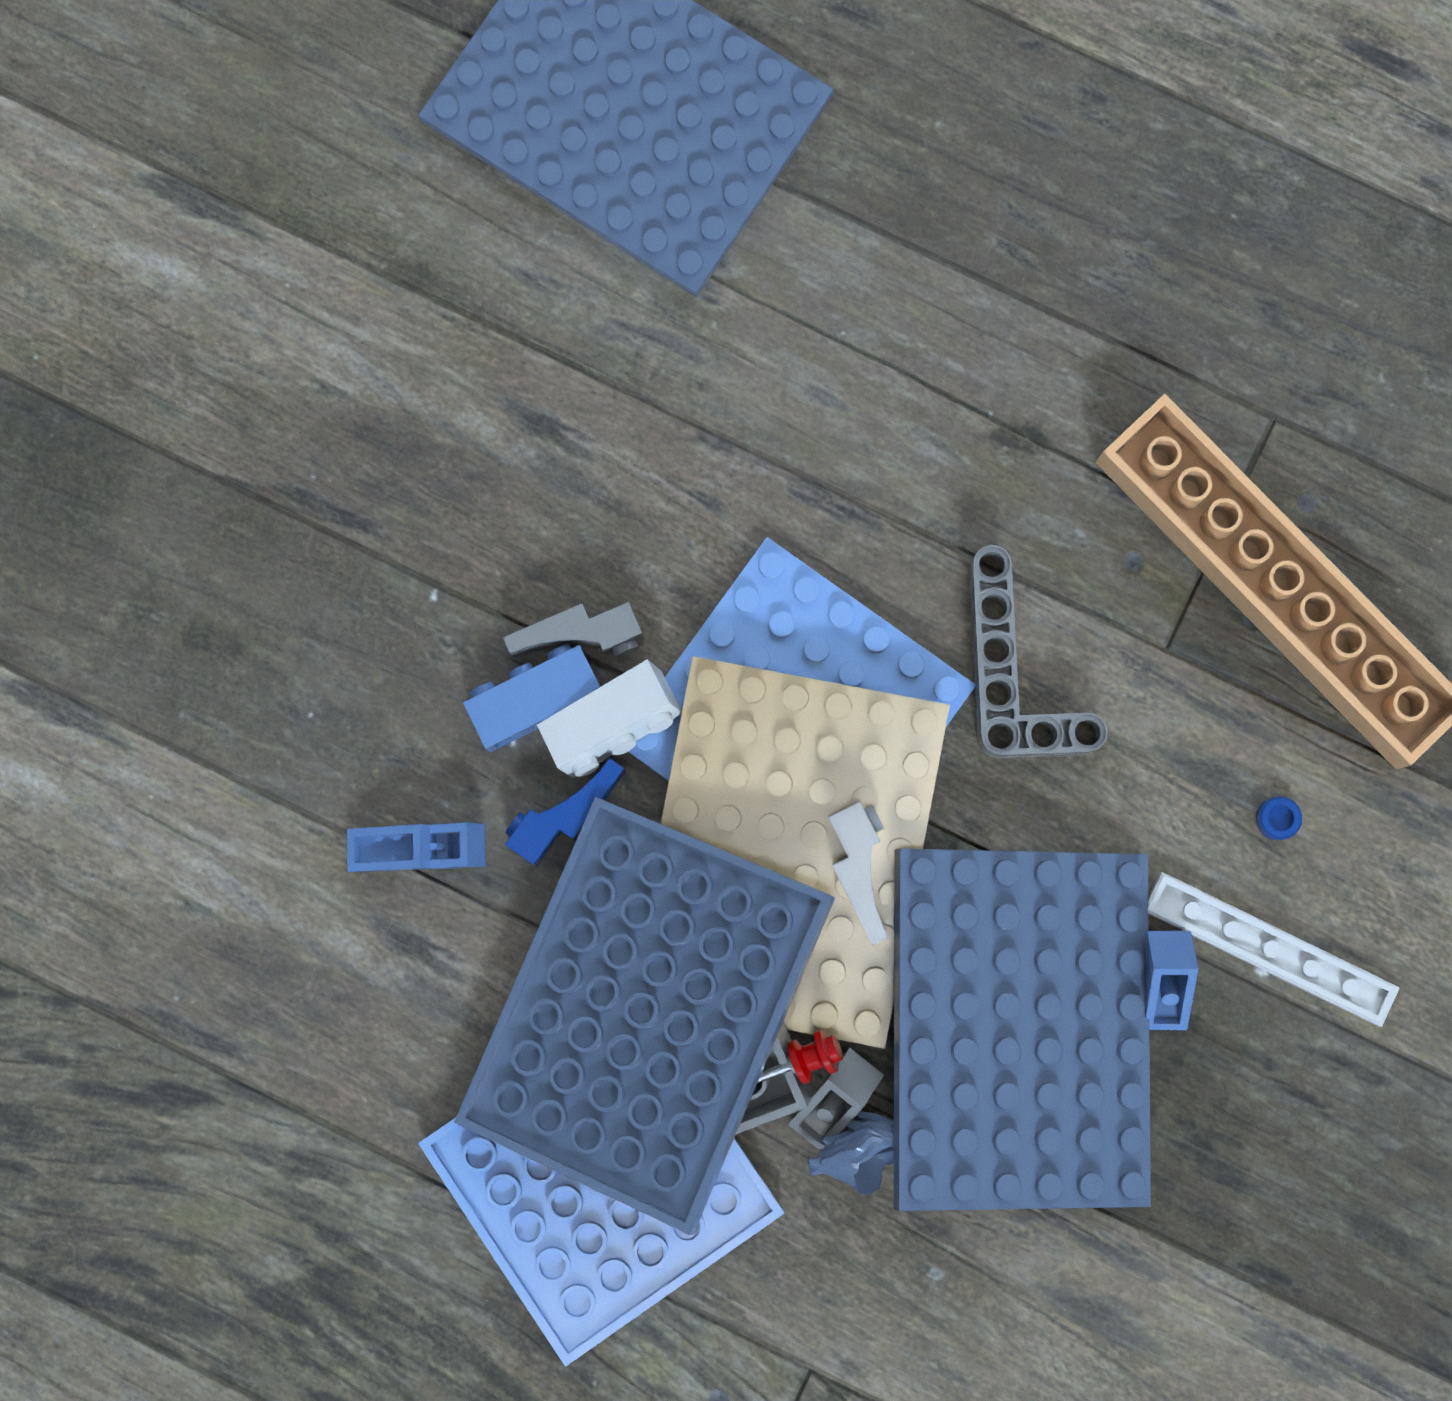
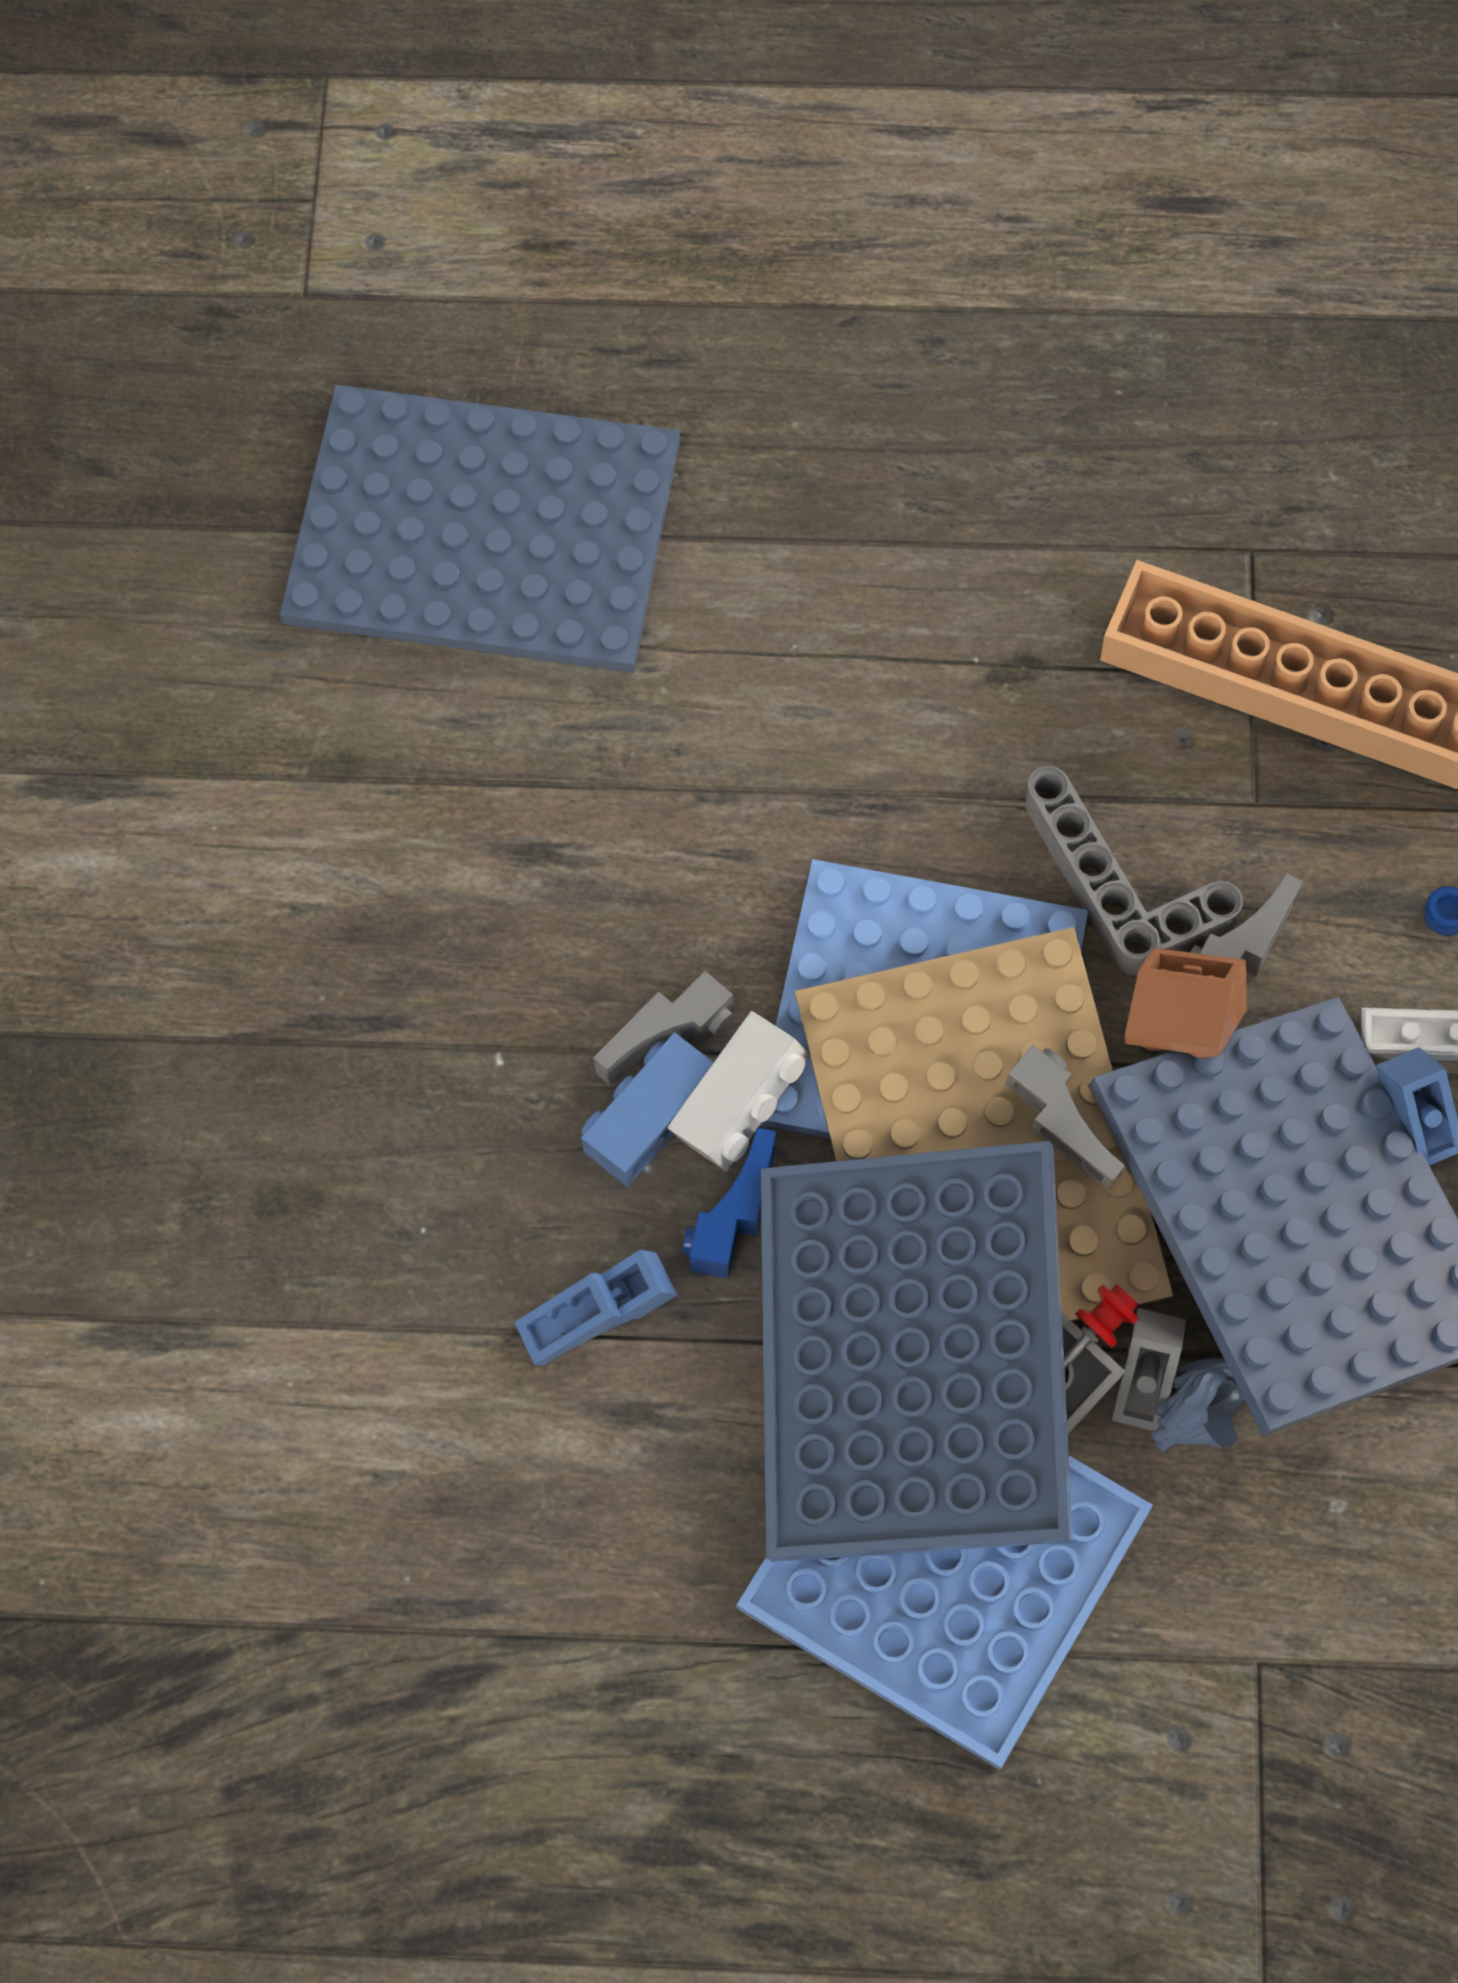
camera: 25 degrees left, 15 degrees down
(1011, 814) = (1187, 1002): none -> nougat slope
(1060, 780) = (1257, 935): none -> light grey slope

